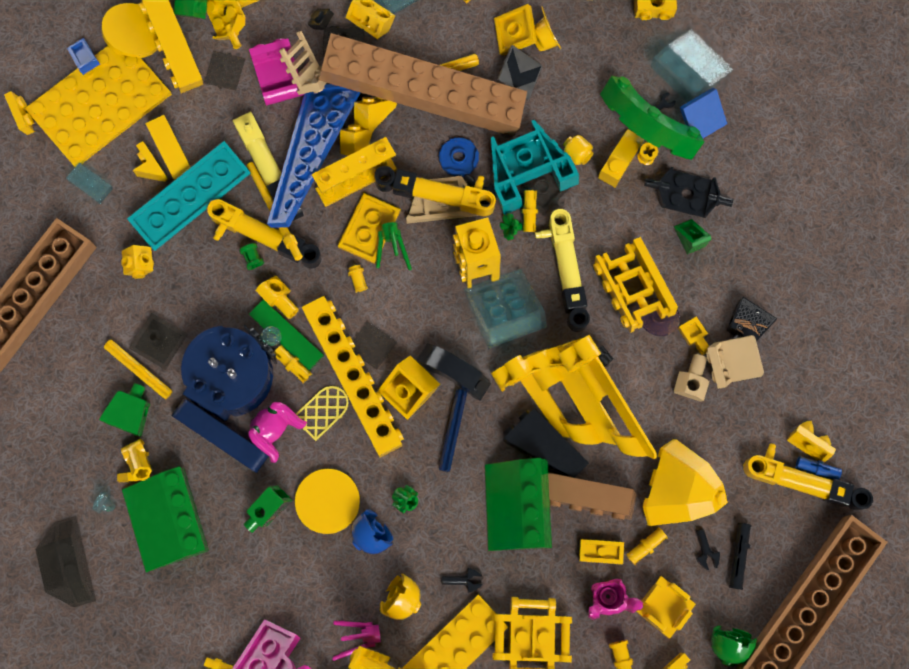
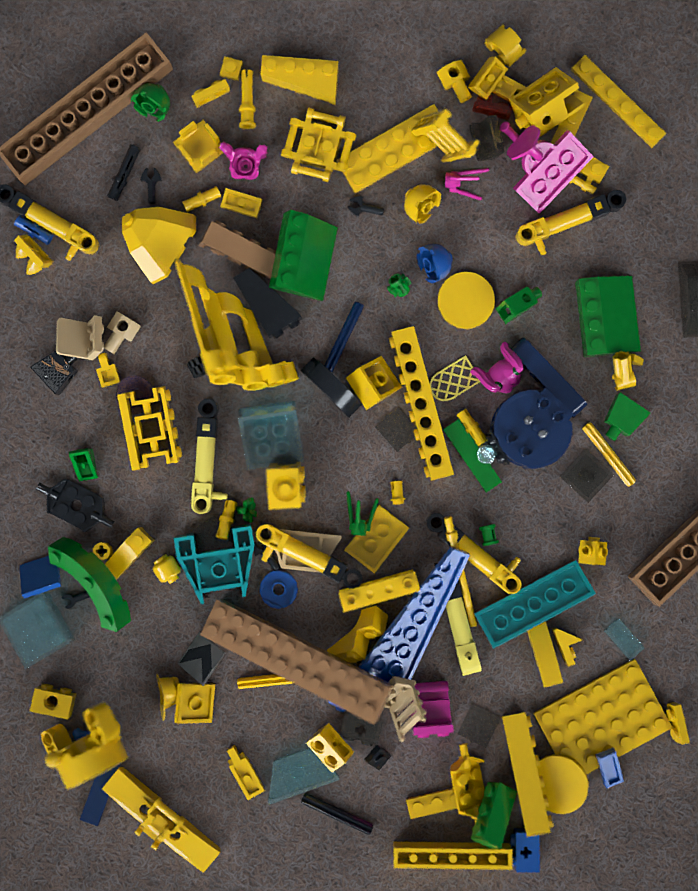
camera: 155 degrees left, 10 degrees up
(101, 501) = (659, 343): clear light blue tile -> none
(228, 621) = (589, 211): none -> yellow piece
(275, 294) = (471, 490): yellow piece -> none

